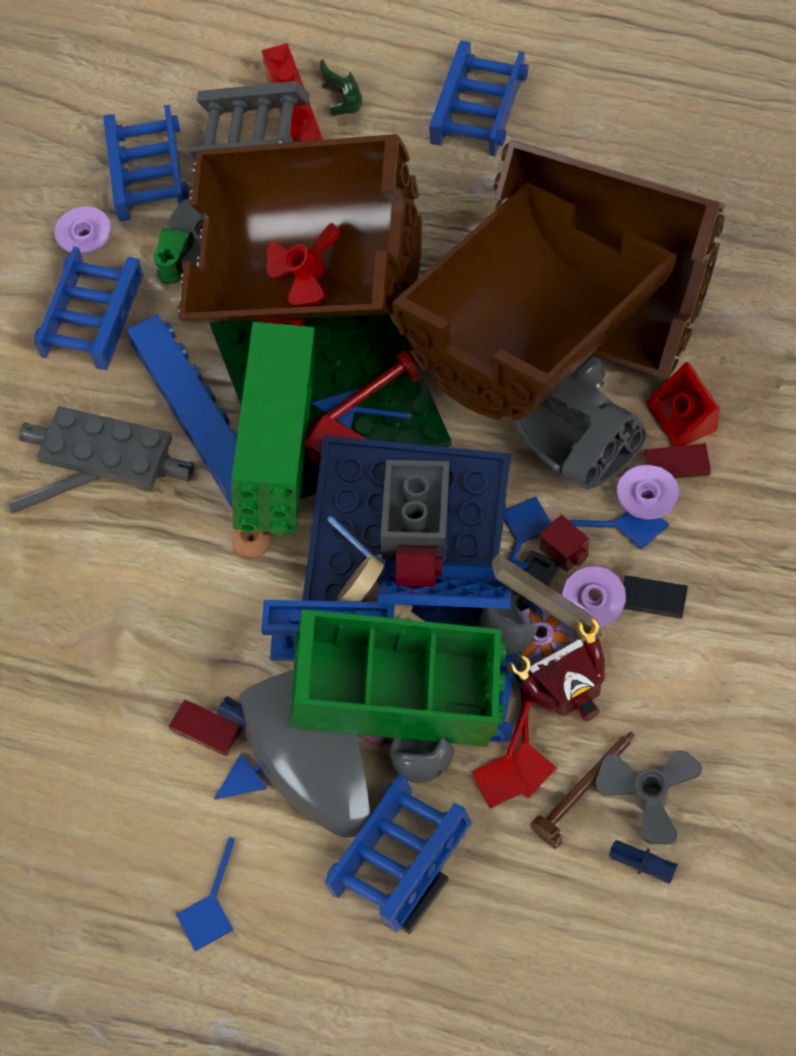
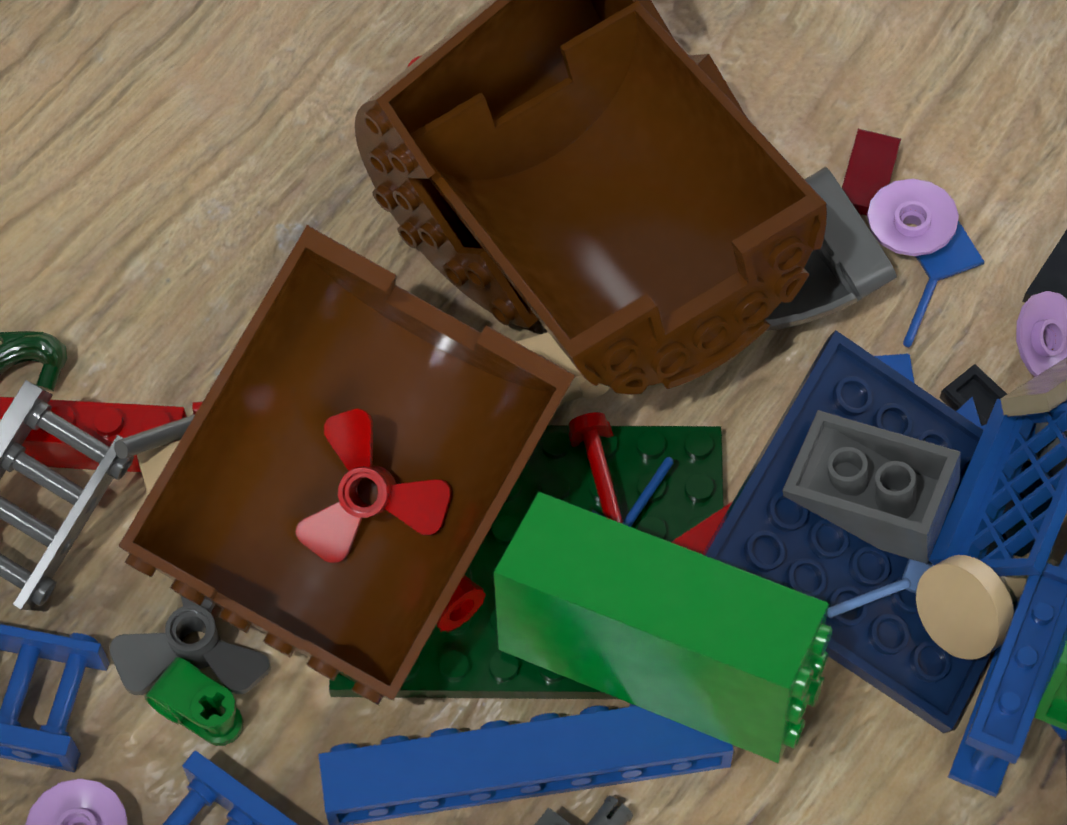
camera: 75 degrees left, 0 degrees up
(250, 548) = (782, 774): nougat plate -> none
(418, 565) = (981, 509): dark red brick -> none
(457, 82) = (135, 225): blue fence -> none
(564, 543) = (952, 343): dark red brick -> none
(685, 407) = (801, 121): red slope -> none

